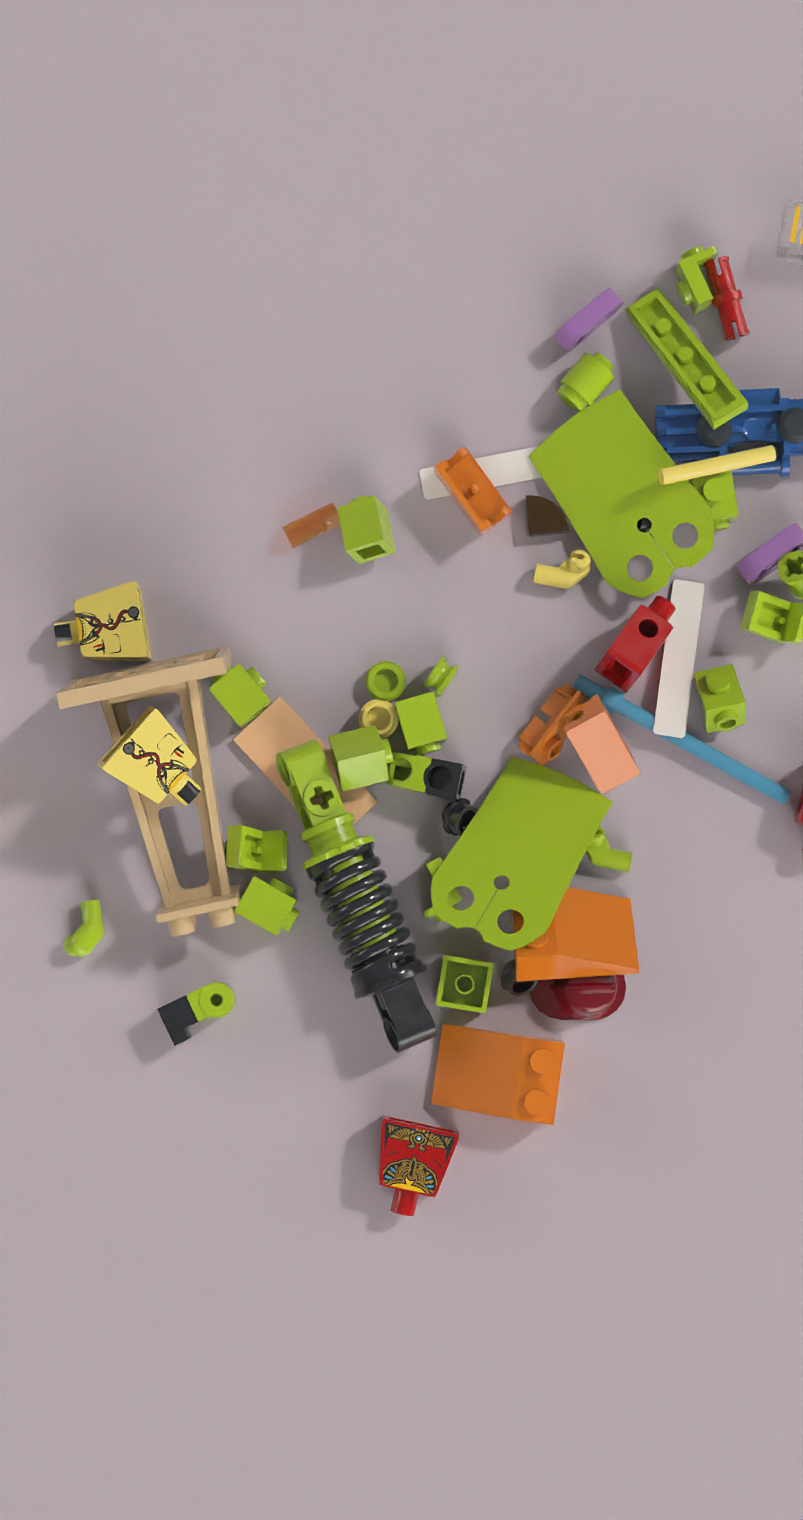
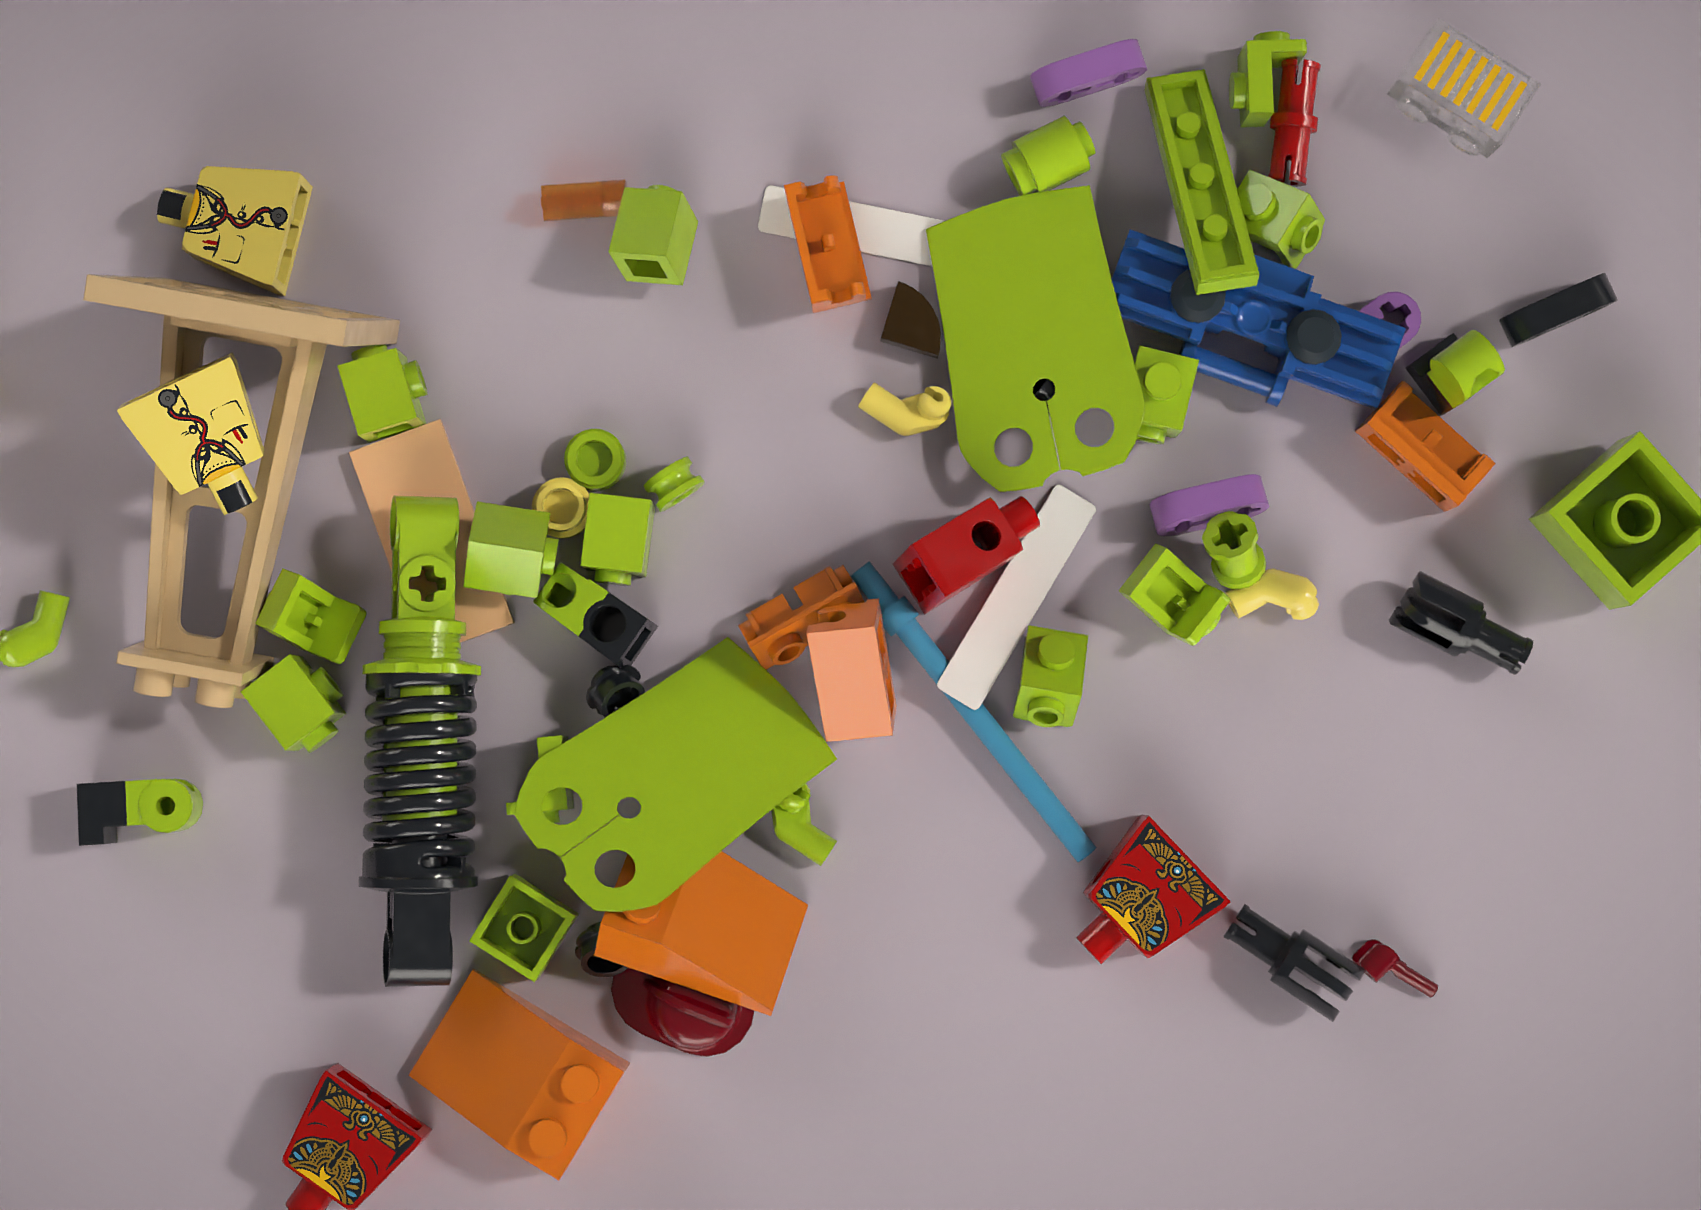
camera: 15 degrees right, 0 degrees up
(716, 465) = (1179, 346): light yellow bar -> none
(742, 359) = (1280, 217): none -> lime bracket

